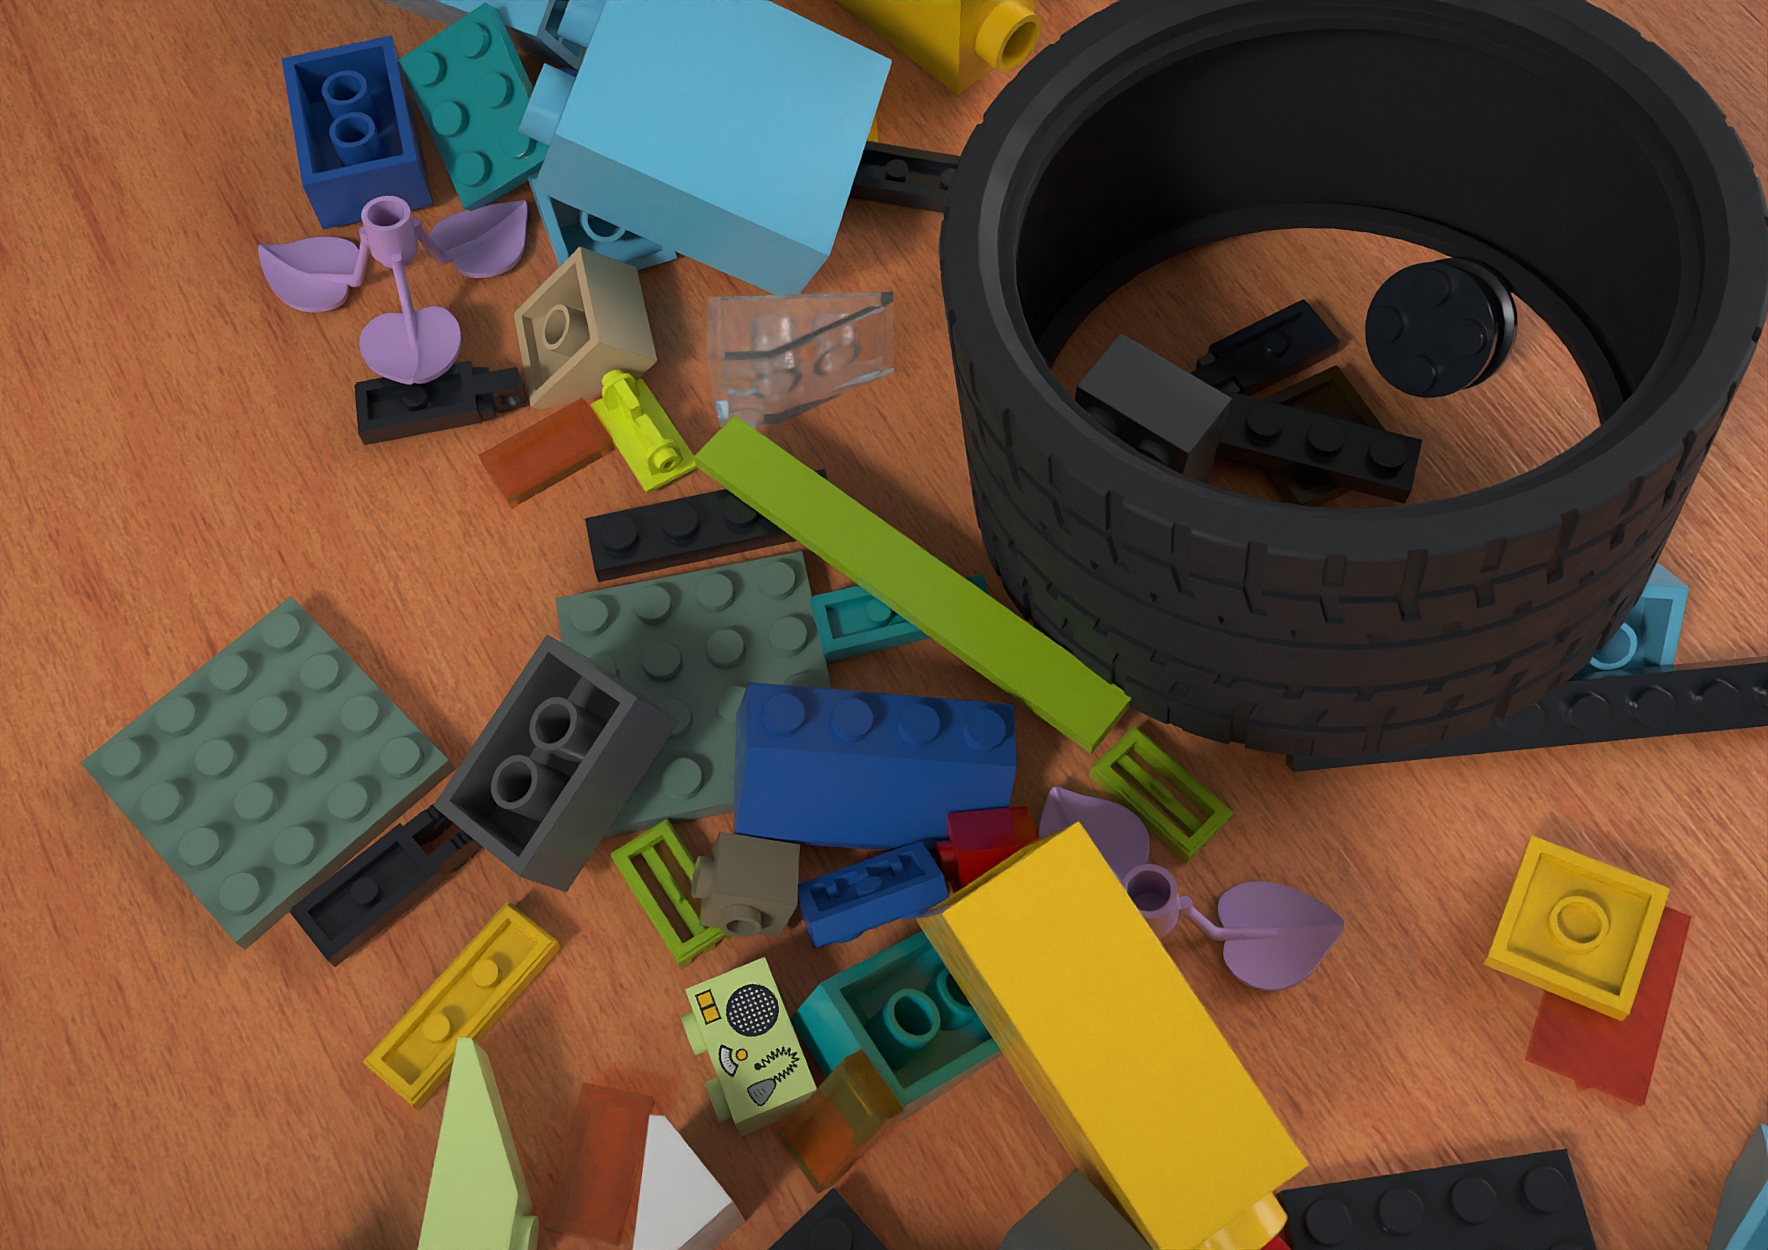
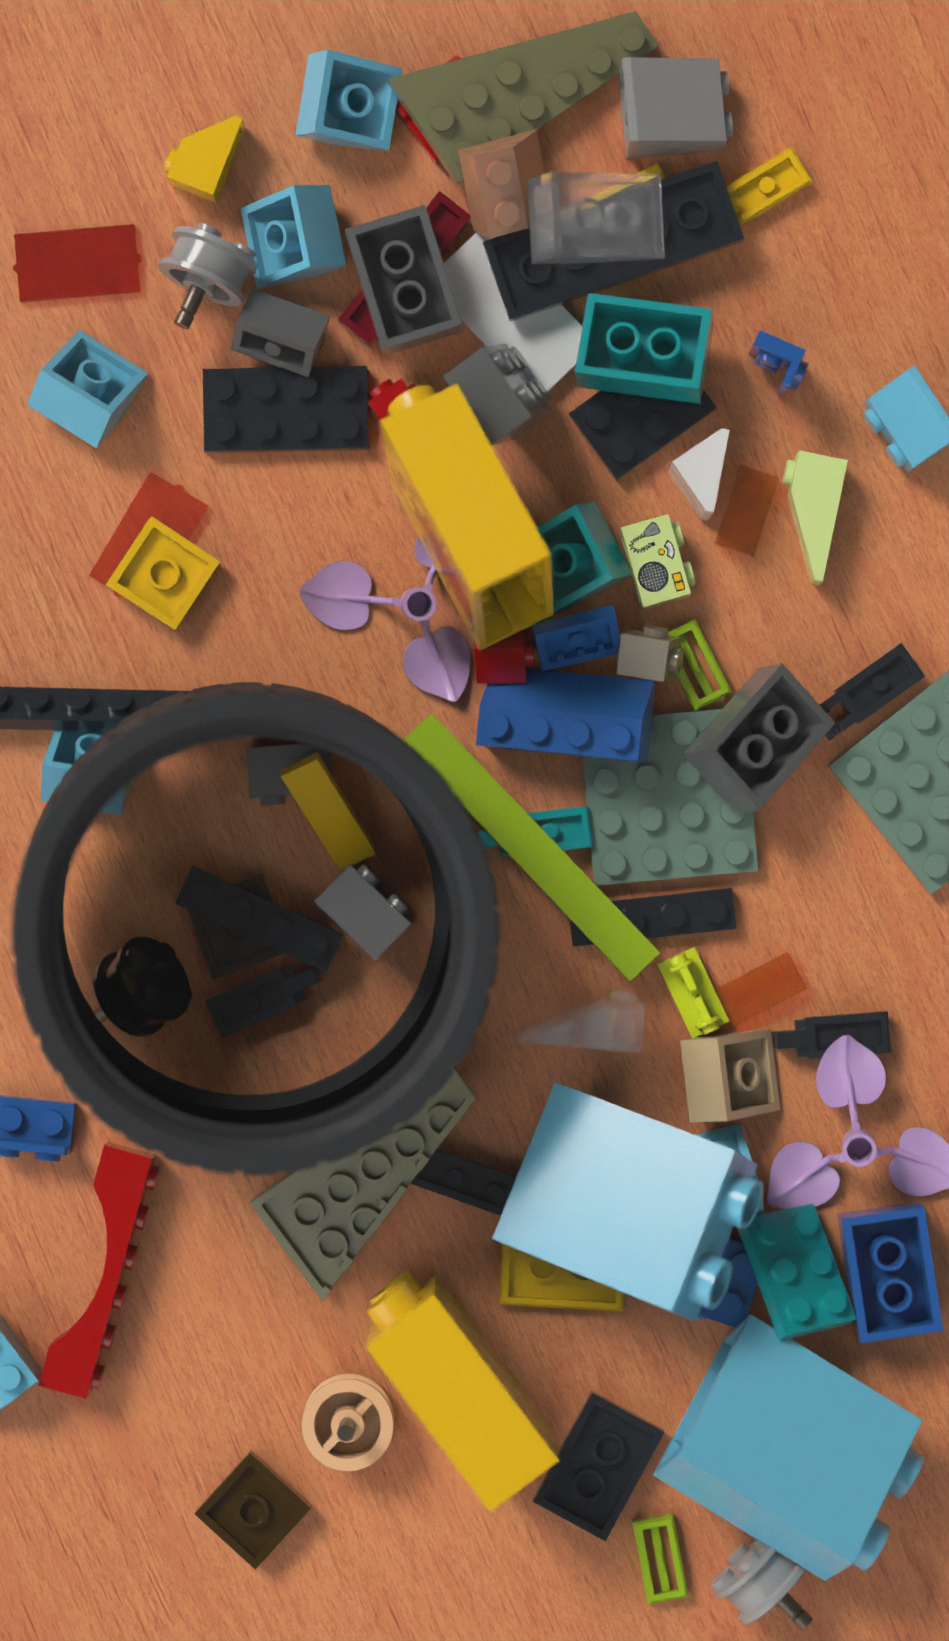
camera: 170 degrees left, 25 degrees up
(462, 1004) = (823, 612): yellow tile -> none
(840, 1121) = (609, 508): clear orange tile -> none
(1174, 773) = (410, 720): lime tile -> none

